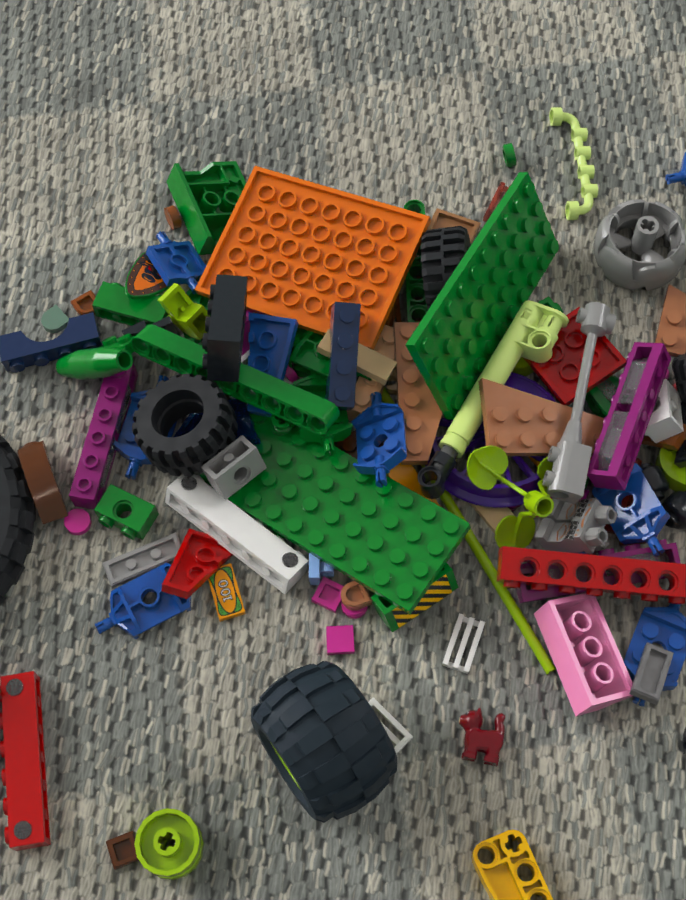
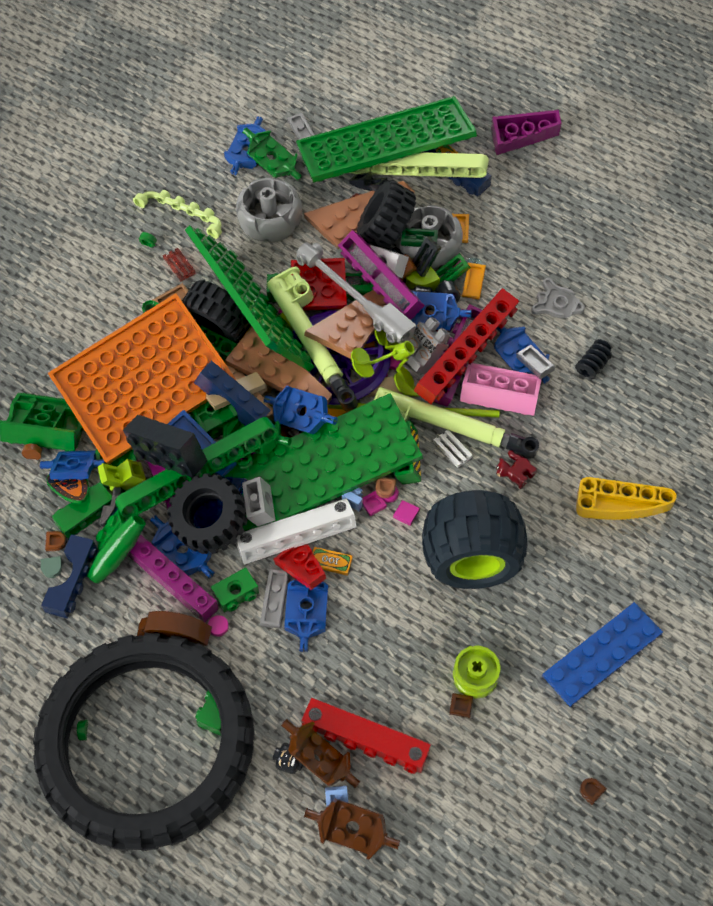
camera: 60 degrees left, 5 degrees down
(478, 556) = (461, 424): none -> yellowish green piece

